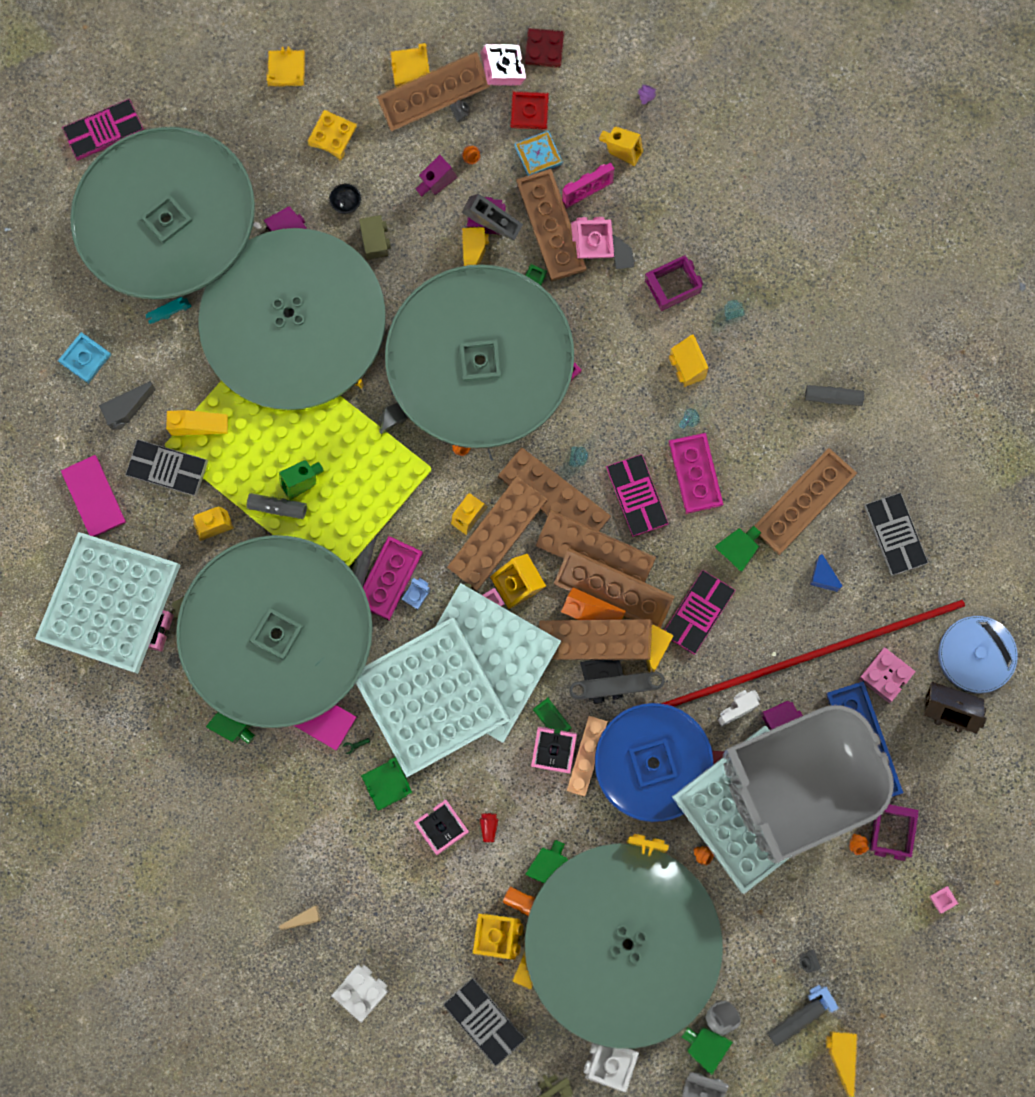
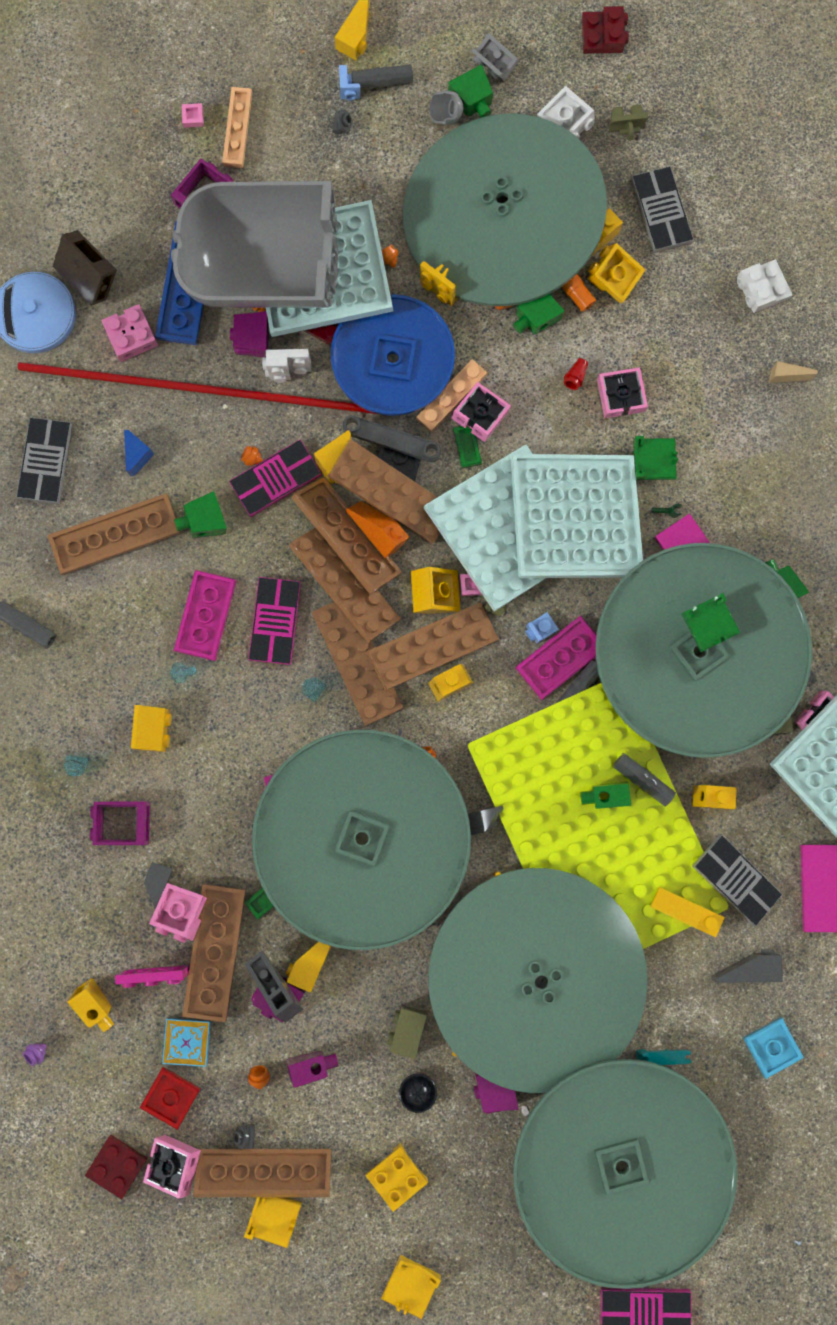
camera: 160 degrees left, 5 degrees up
(278, 651) = (710, 622): none -> green piece
(728, 619) = (251, 456): none -> orange plate
(898, 908) = (237, 127): none -> light nougat plate

